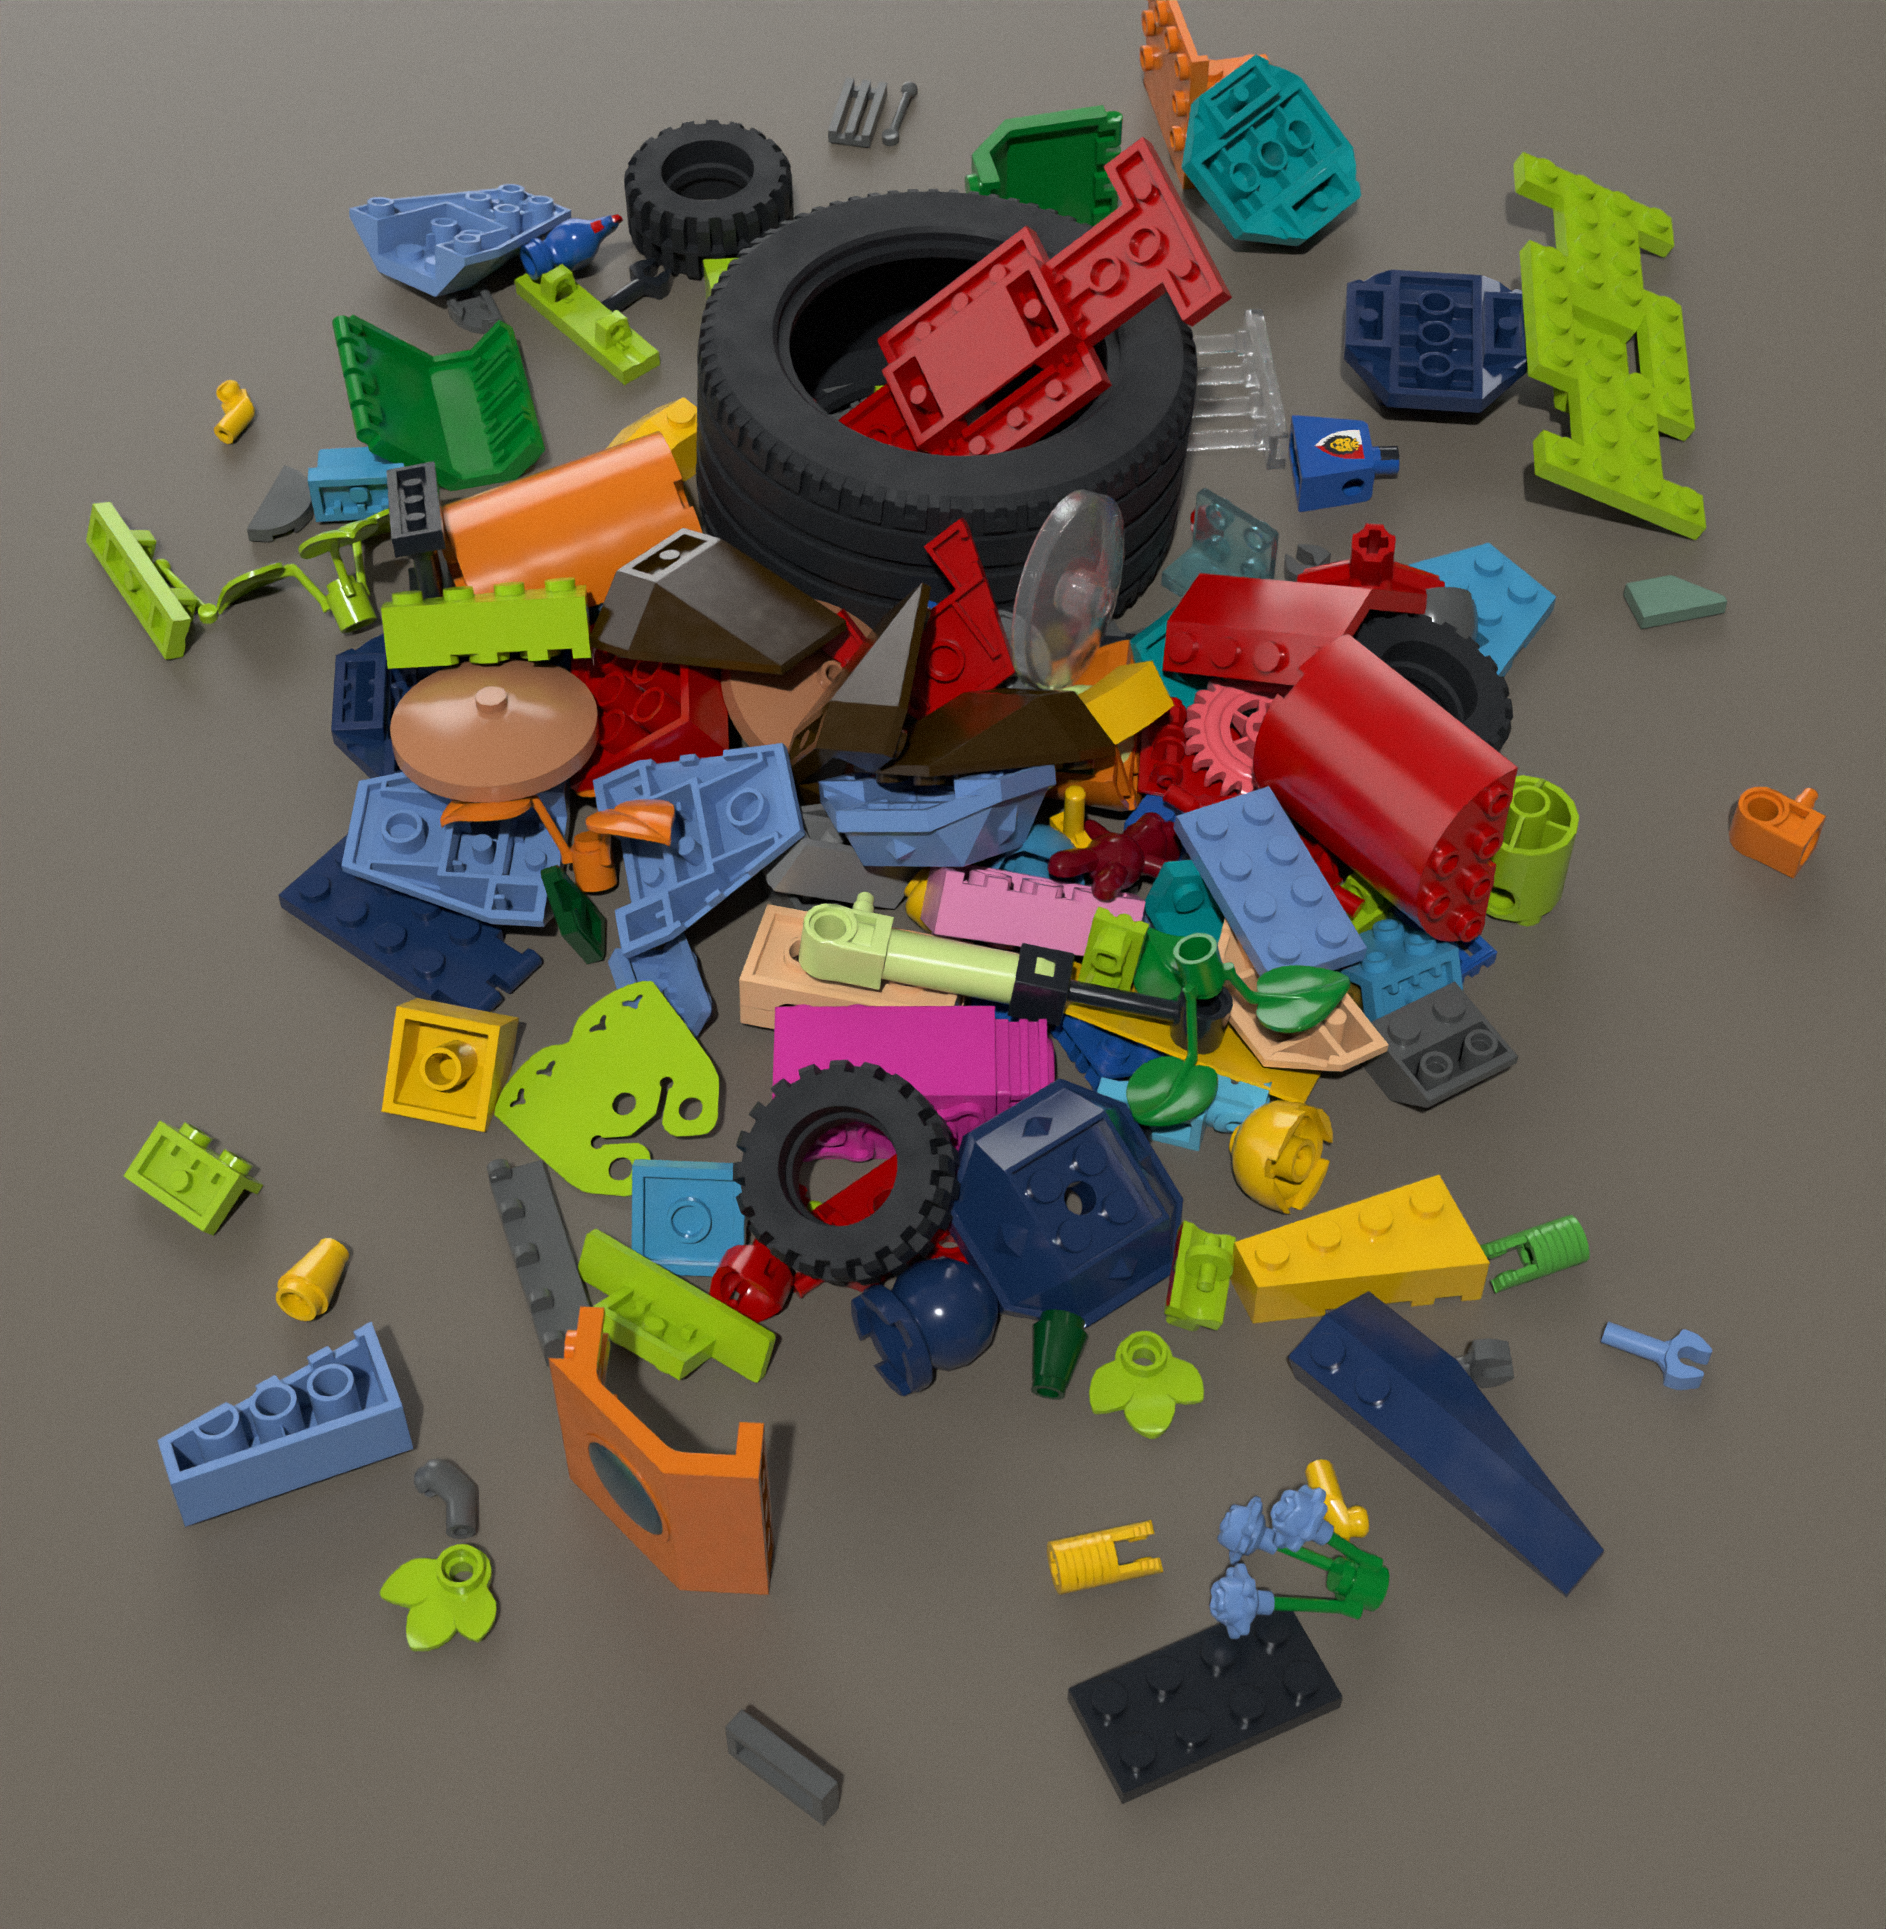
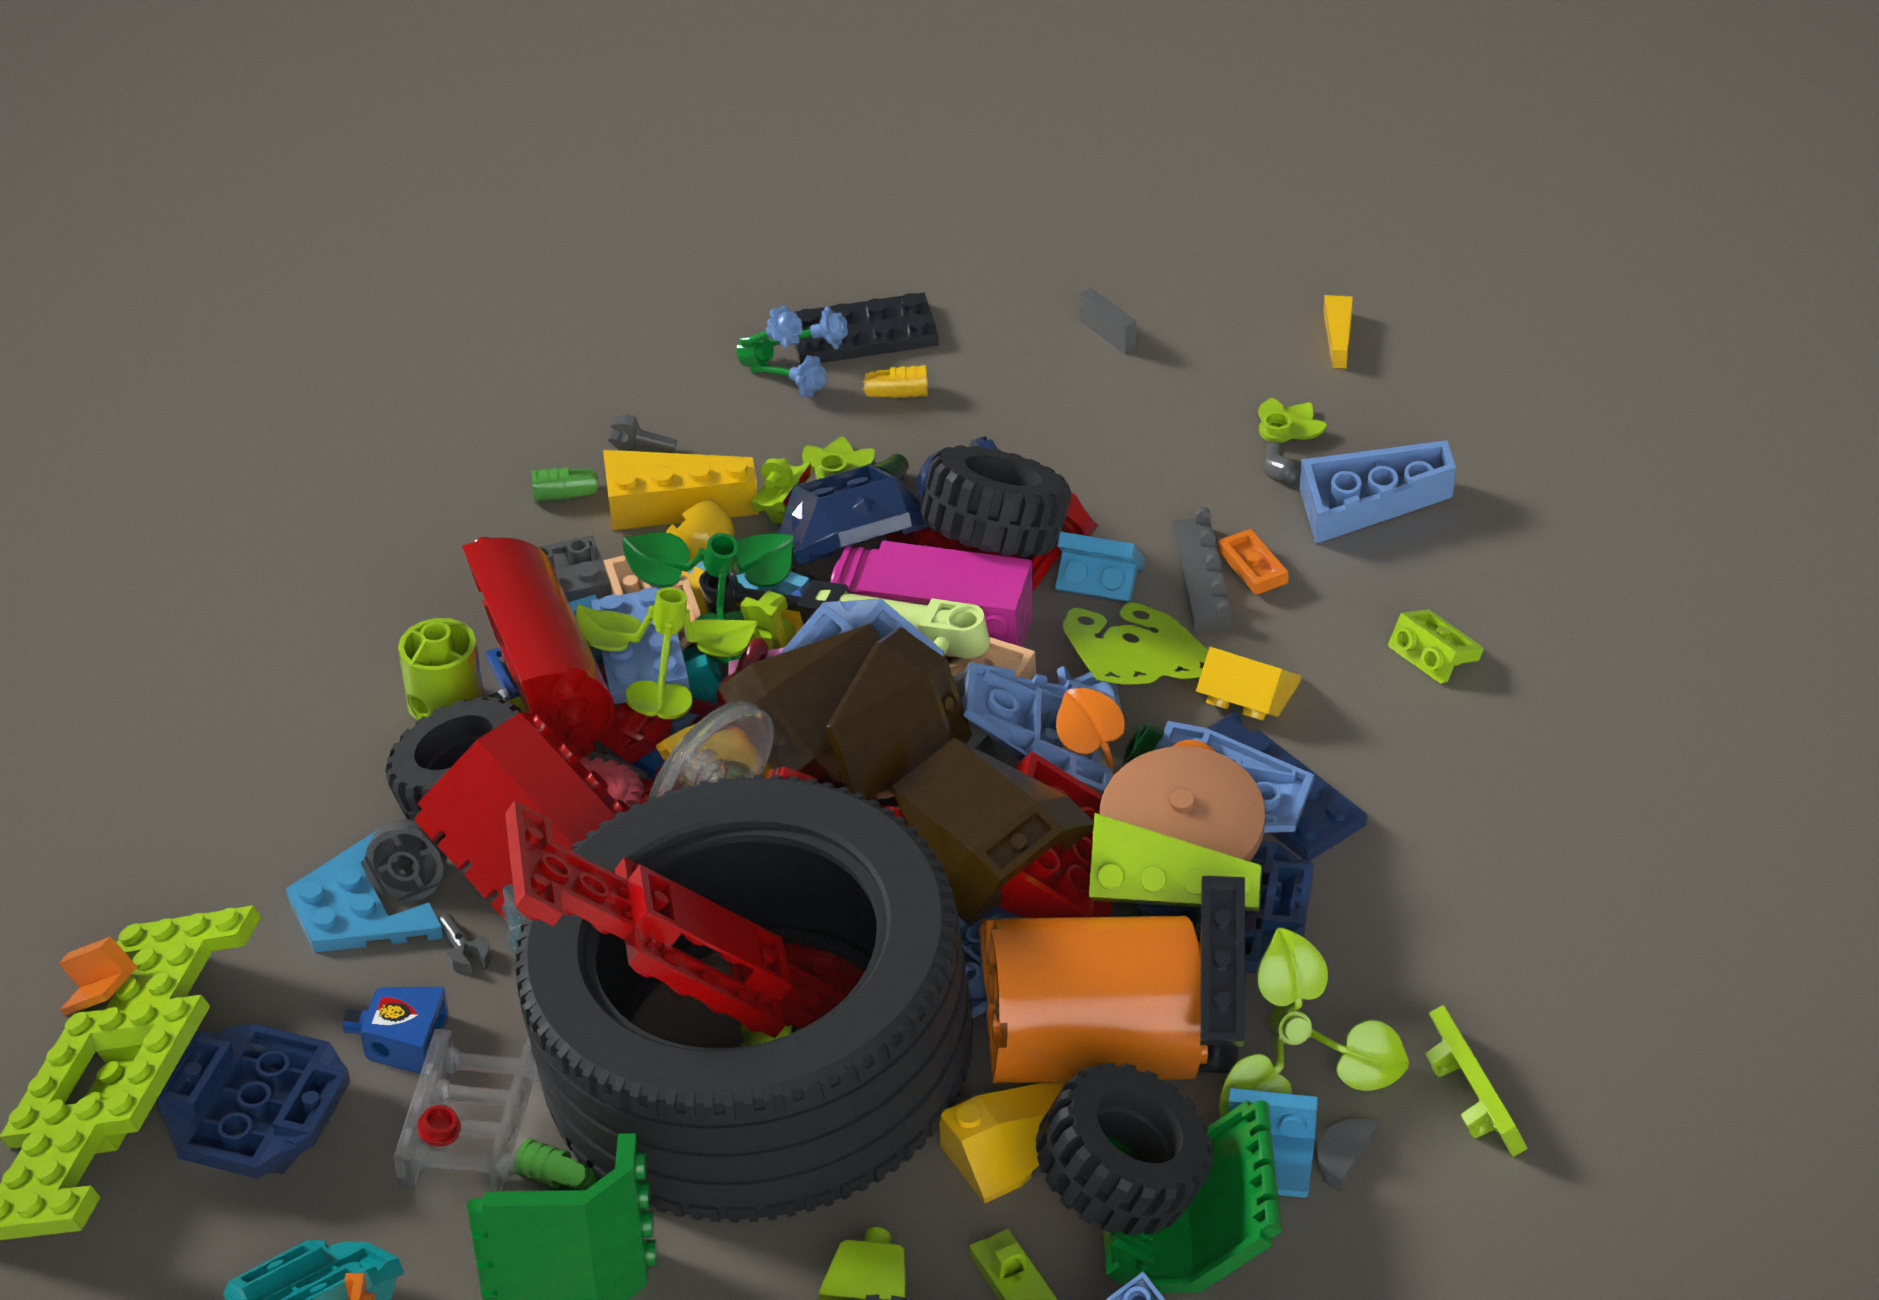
camera: 165 degrees left, 10 degrees down
(206, 612) = (1417, 1065): lime hinge -> none
(237, 409) = (1382, 1255): yellow arm -> none
(312, 1281) = (1356, 574): yellow cone -> none
(376, 1856) = (1338, 325): none -> yellow piece
(469, 1281) = (1253, 561): none -> orange plate
(527, 408) = (1101, 1178): none -> black tyre
(668, 1317) = (1135, 521): lime bracket -> none
(689, 1513) = (1149, 378): orange panel -> none
(1204, 771) = (669, 614): none -> lime plant
(1230, 338) = (439, 1126): none -> red plate
(1346, 1521) = (752, 390): yellow arm -> none
(1372, 566) = (435, 883): red piece -> none
(1444, 1431) = (678, 404): dark blue wedge -> none
(1665, 1354) = (511, 433): medium blue bar -> none
(1670, 601) = (195, 880): sand green tile -> none
(1690, 439) = (97, 971): none -> orange panel
(1777, 828) = (236, 691): orange piece -> none

